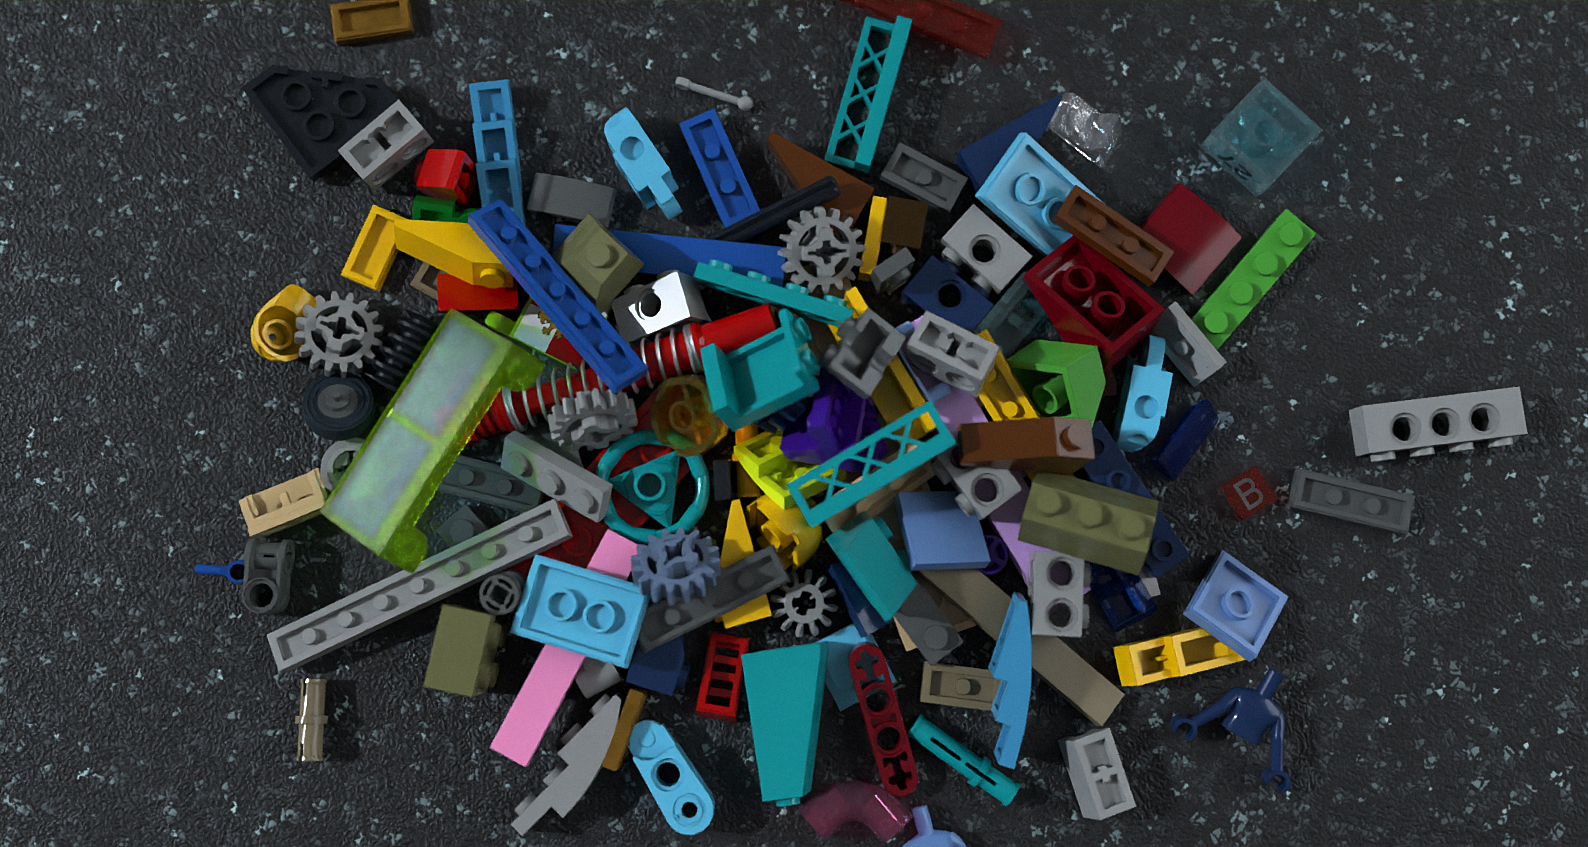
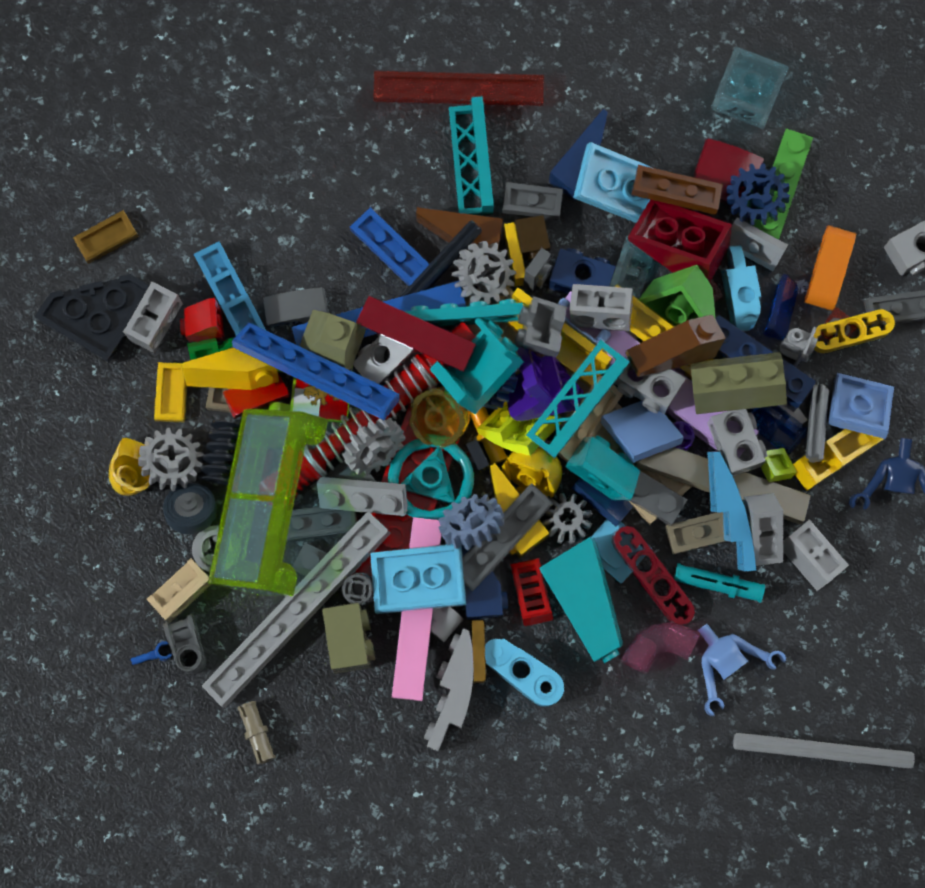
camera: 20 degrees left, 5 degrees down
(641, 163) = (335, 263): medium azure piece -> none
(700, 298) = (416, 334): none -> dark red tile
(744, 103) = (341, 199): light grey hinge -> none
(979, 230) = (584, 221): light grey brick -> none
(1049, 718) = (766, 527): none -> light grey brick
(1086, 128) = (630, 125): clear slope -> none
(1098, 641) = (778, 466): none -> lime plate
(1170, 608) = (817, 423): none -> dark grey axle
(1188, 498) = (798, 345): none -> light grey hinge
(1223, 267) = (757, 205): none -> dark blue gear
(1269, 411) = (830, 268): none -> orange beam
(1293, 497) = (869, 317): none -> yellow beam

